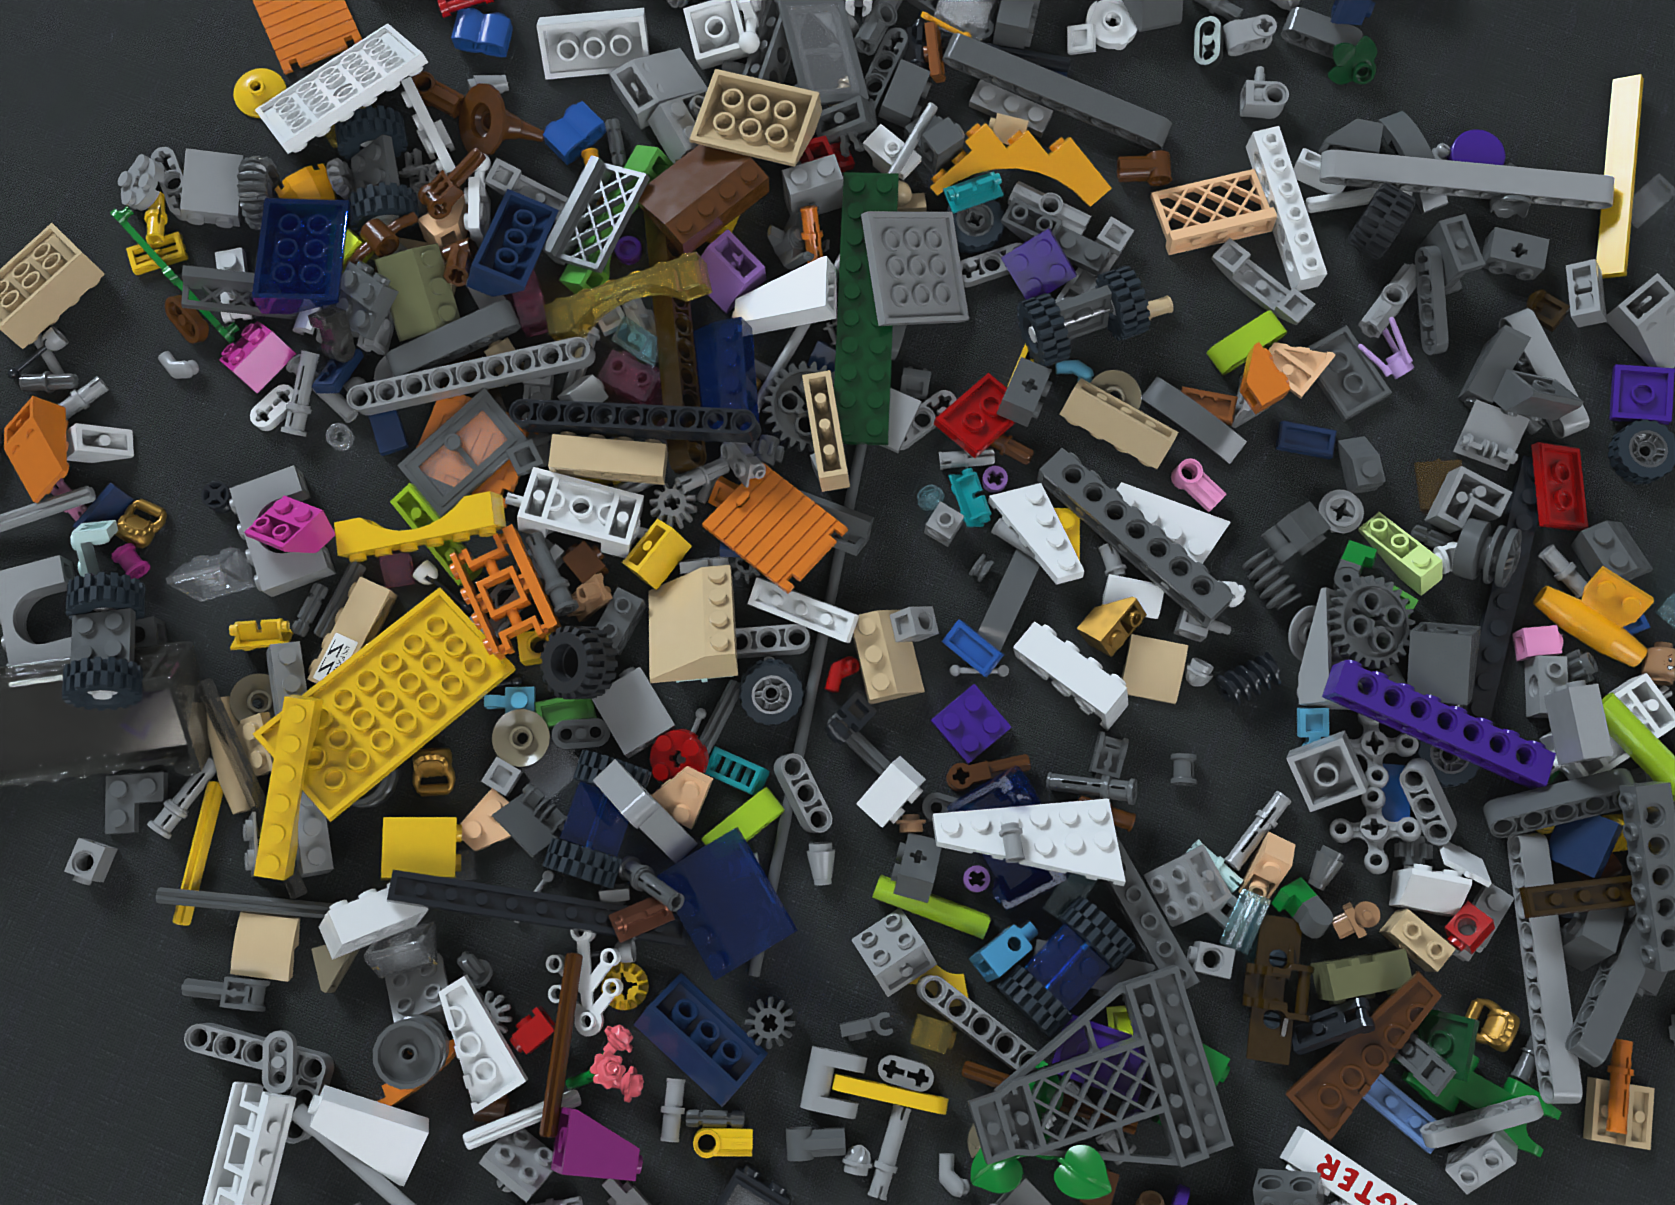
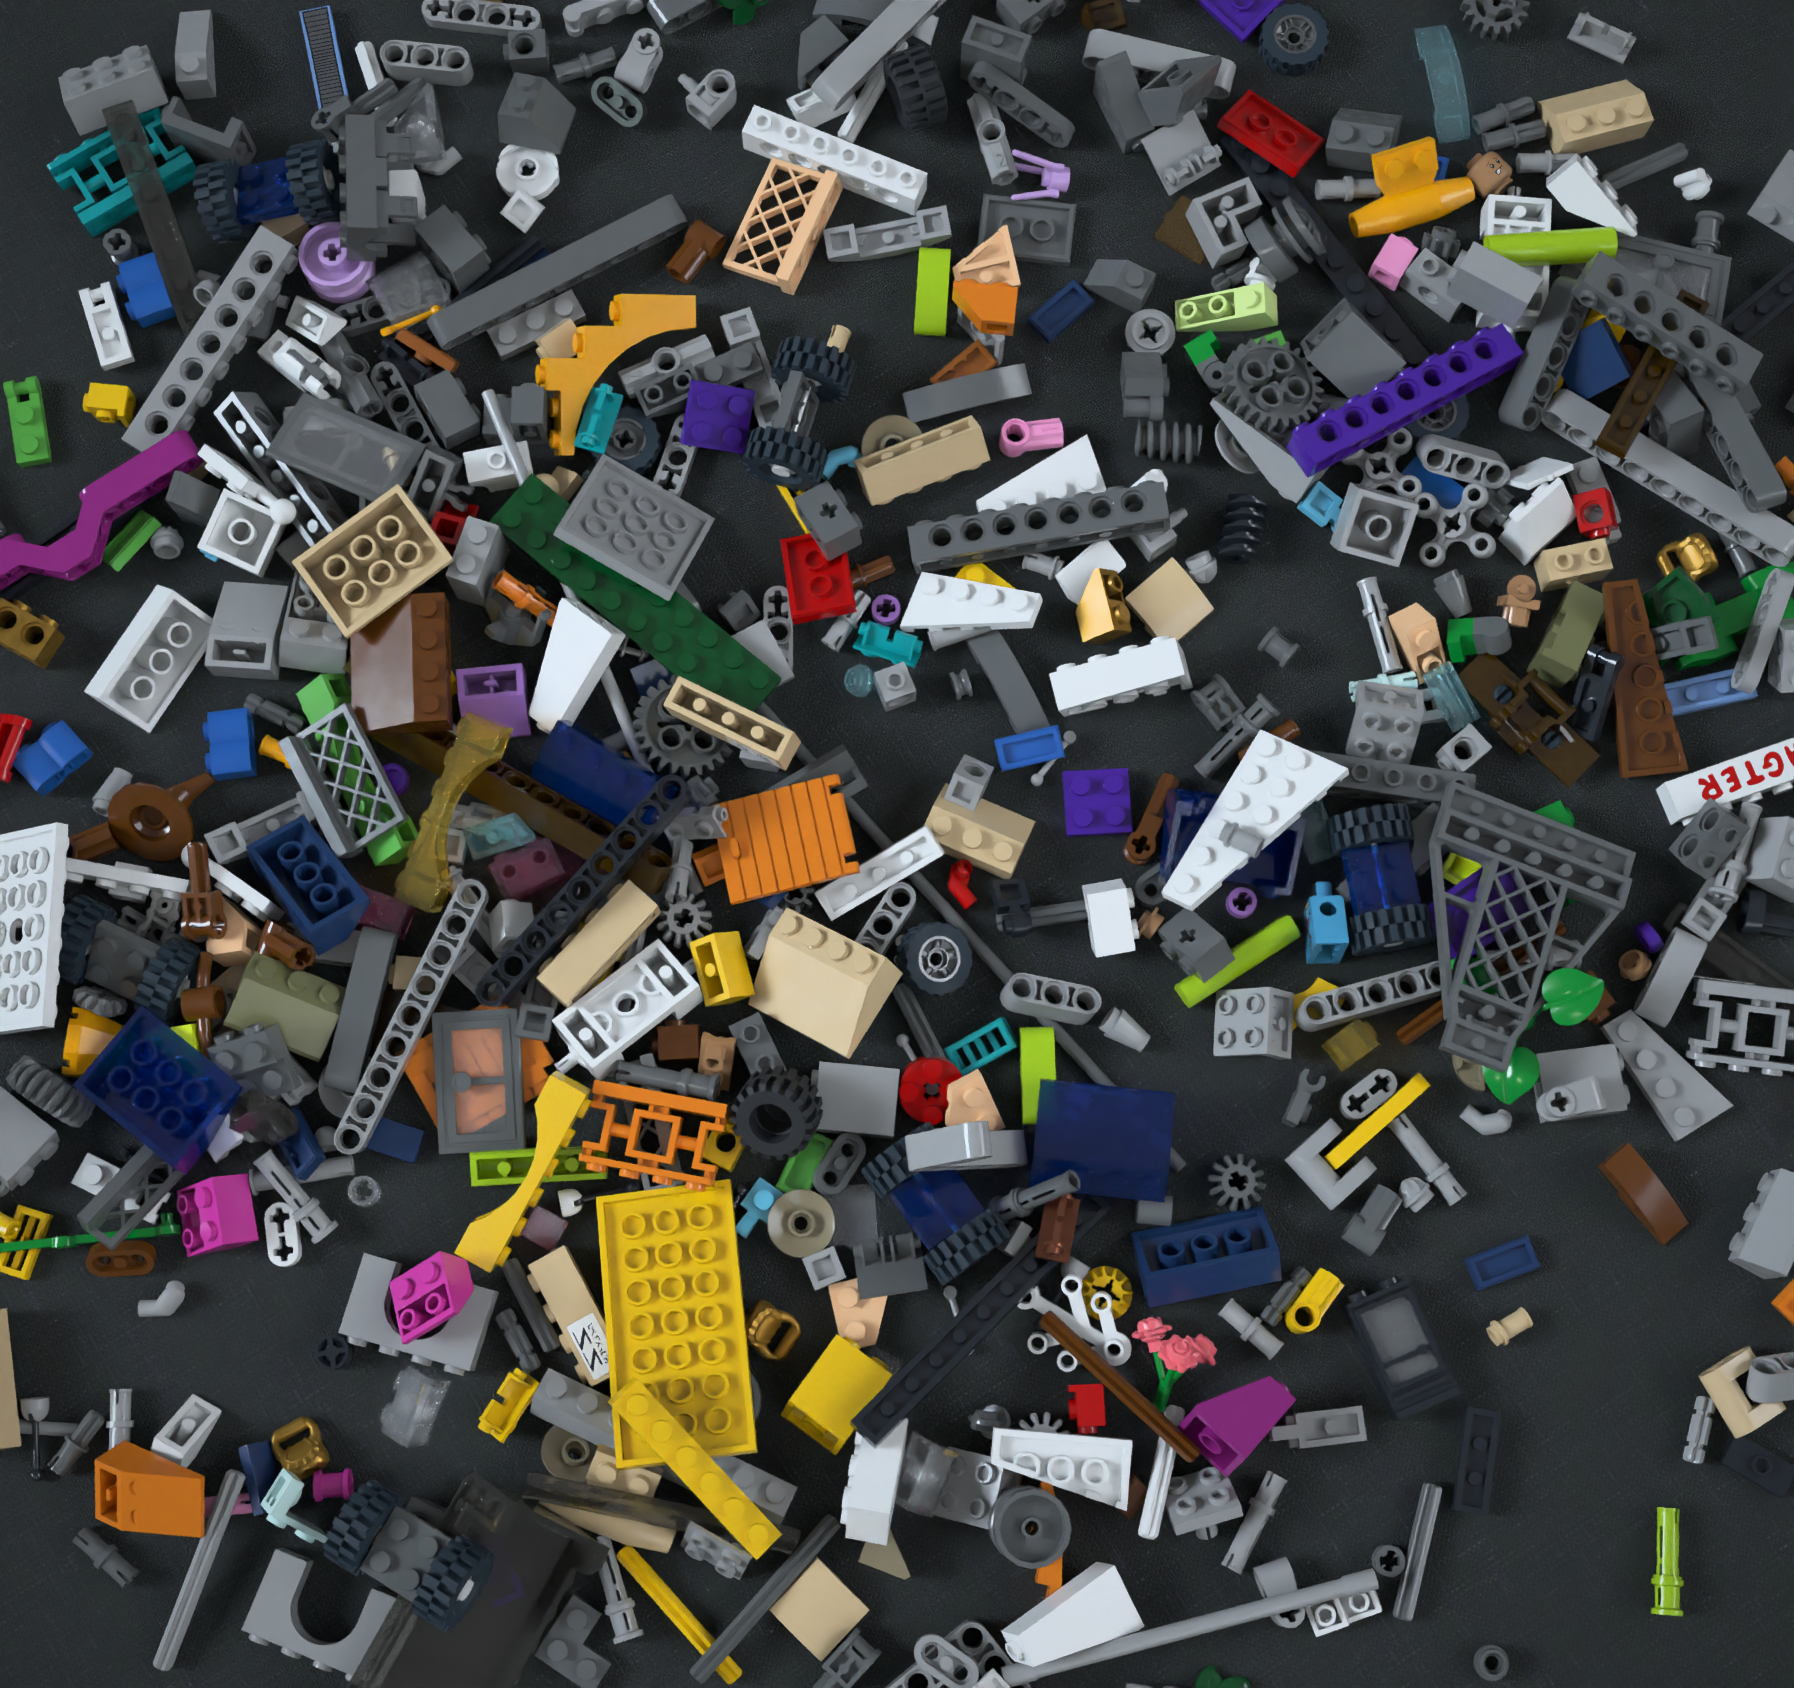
camera: 55 degrees left, 0 degrees up
(705, 980) = (1154, 1212): none -> dark grey beam

